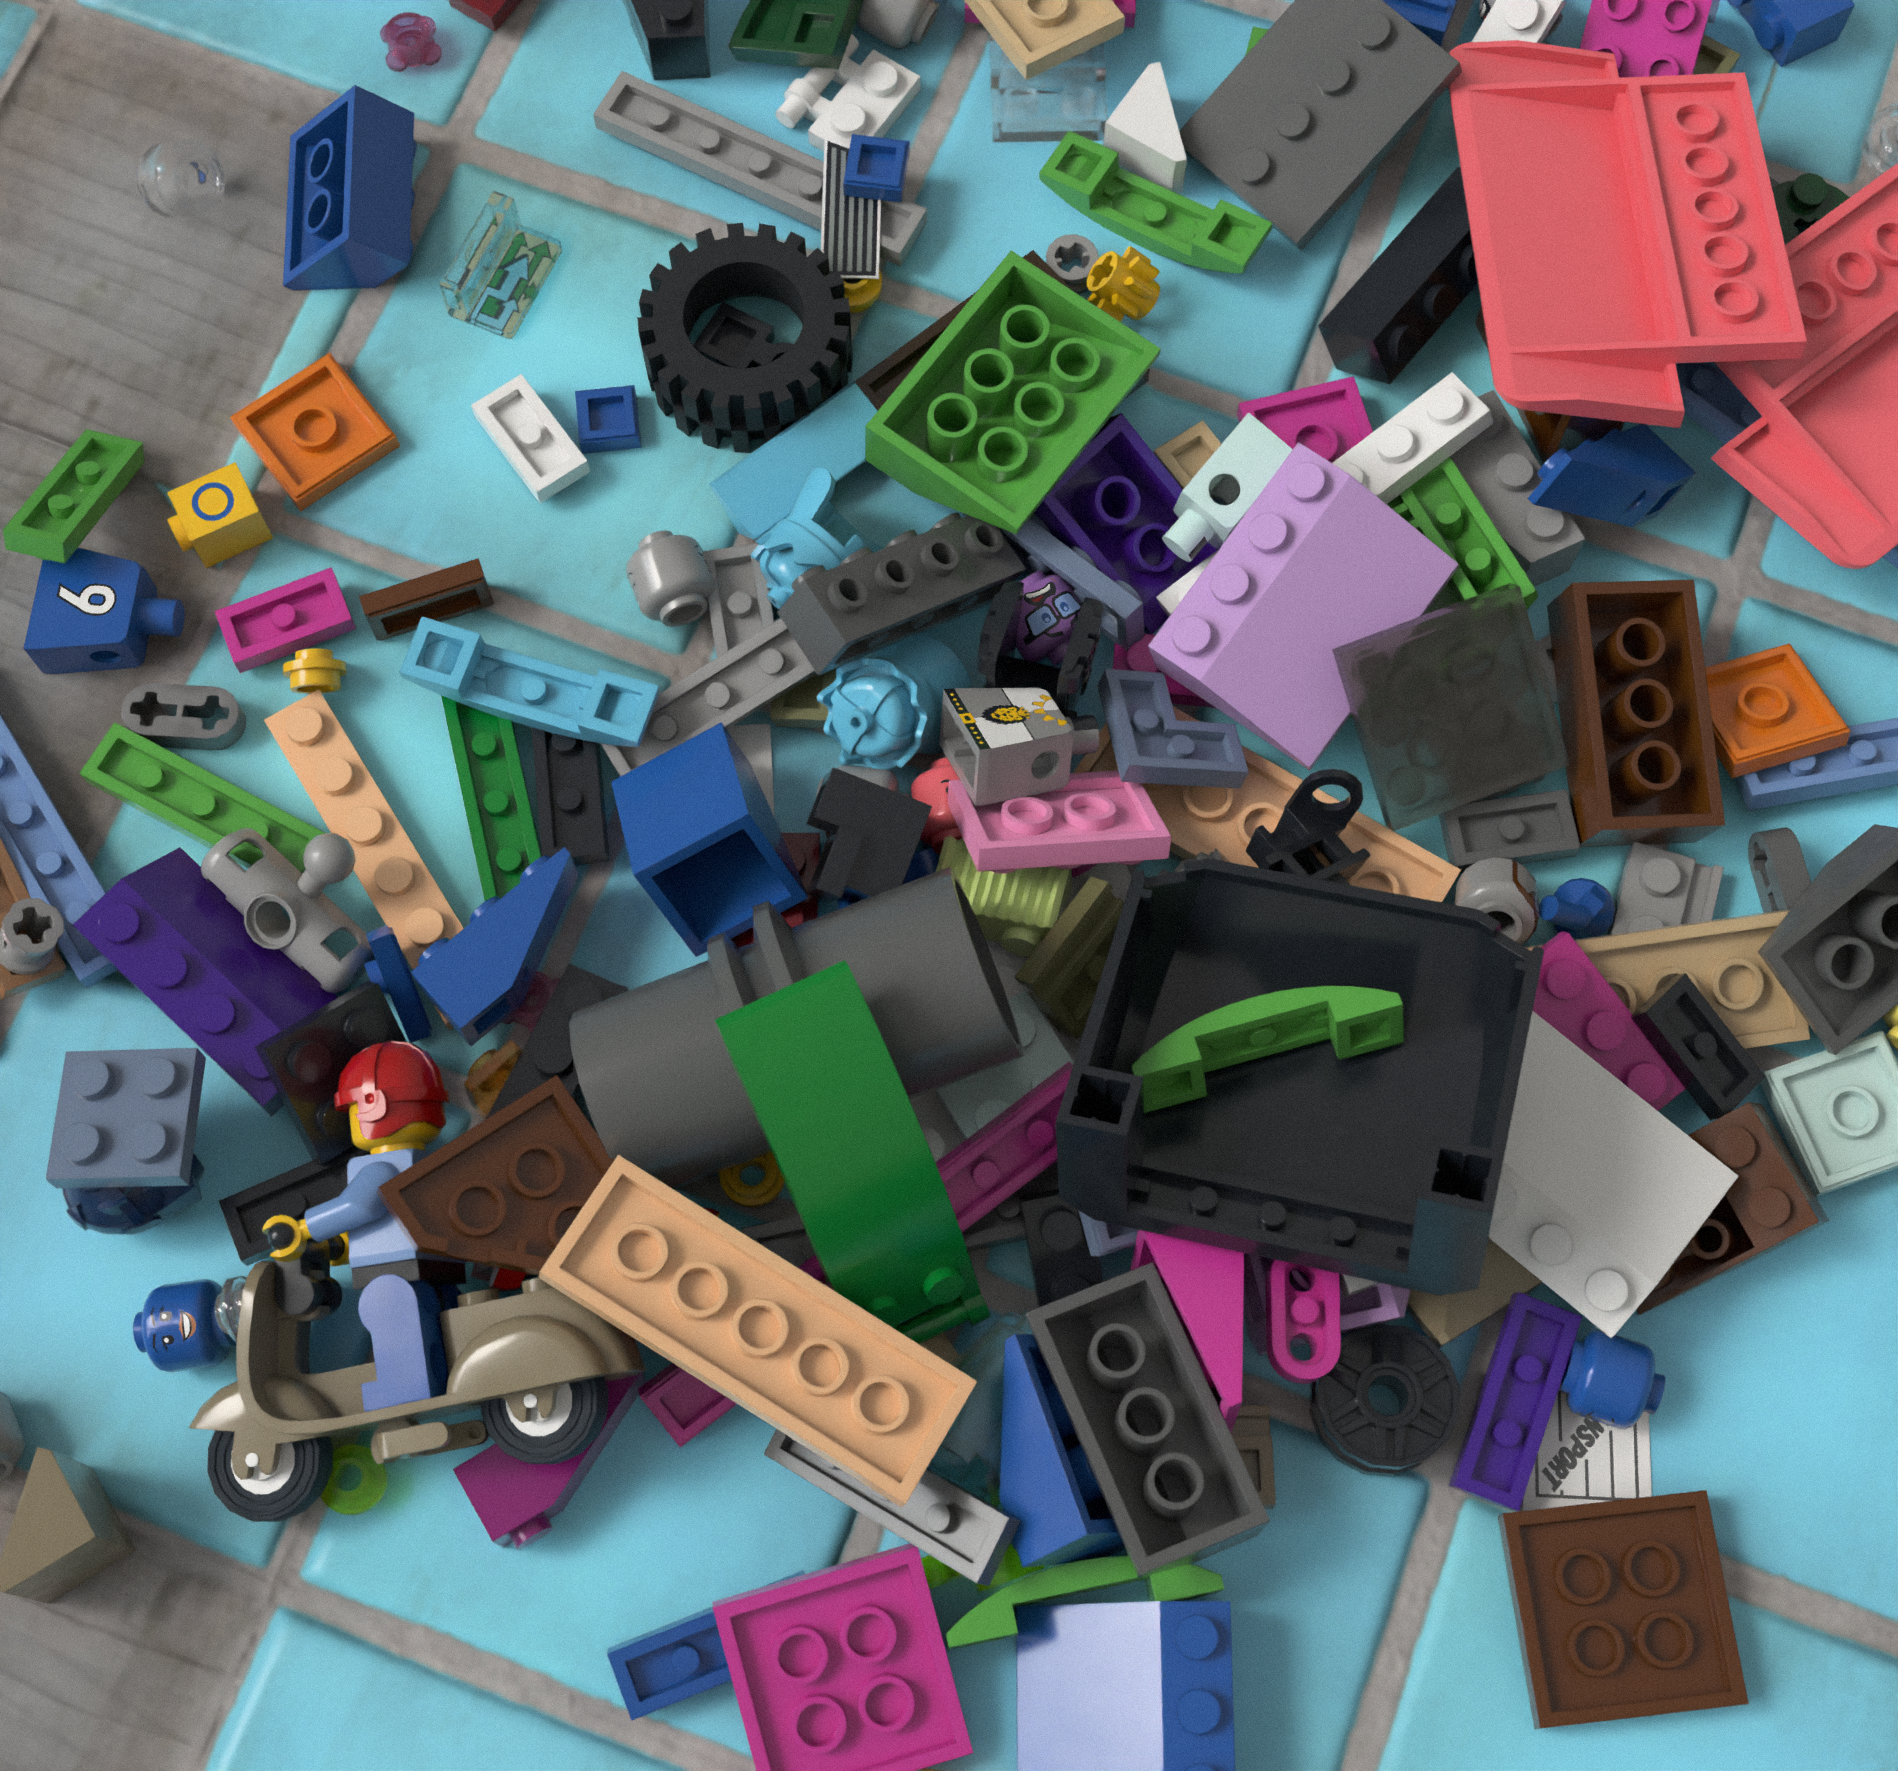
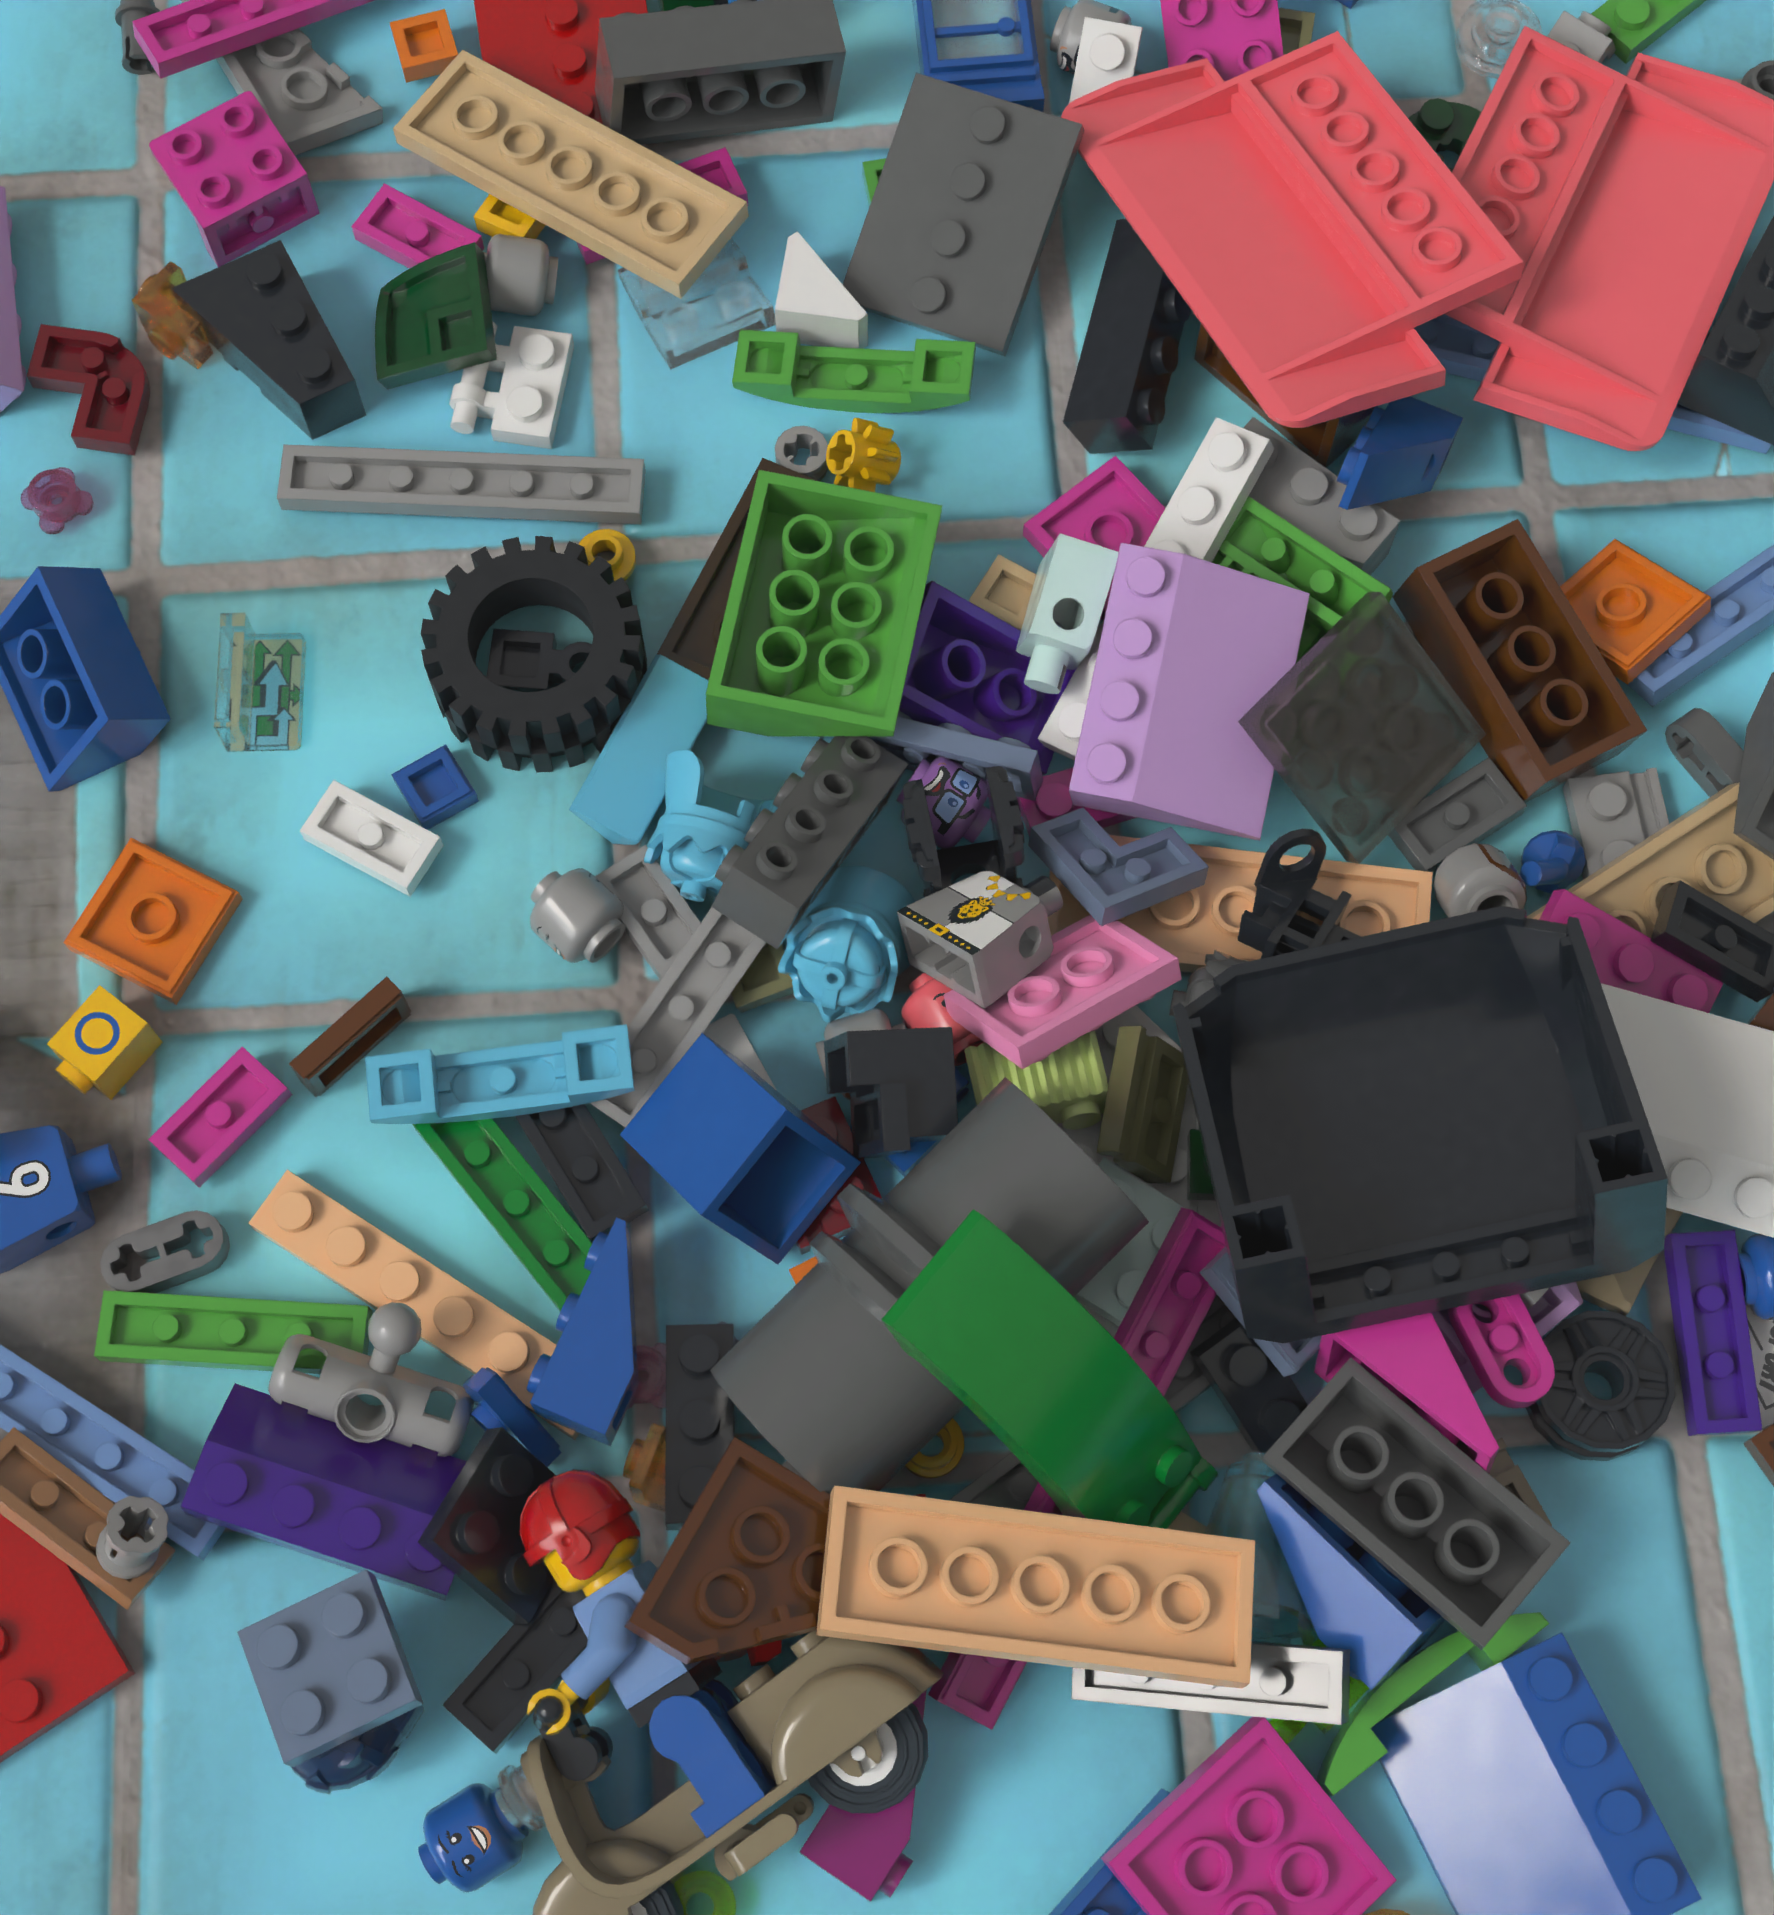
camera: 25 degrees left, 0 degrees up
(314, 670) = (275, 1154): yellow plate -> none
(848, 223) = (573, 489): sticker -> none
(876, 168) = (579, 440): blue tile -> none
(1264, 1025) = (1422, 1054): bright green slope -> none

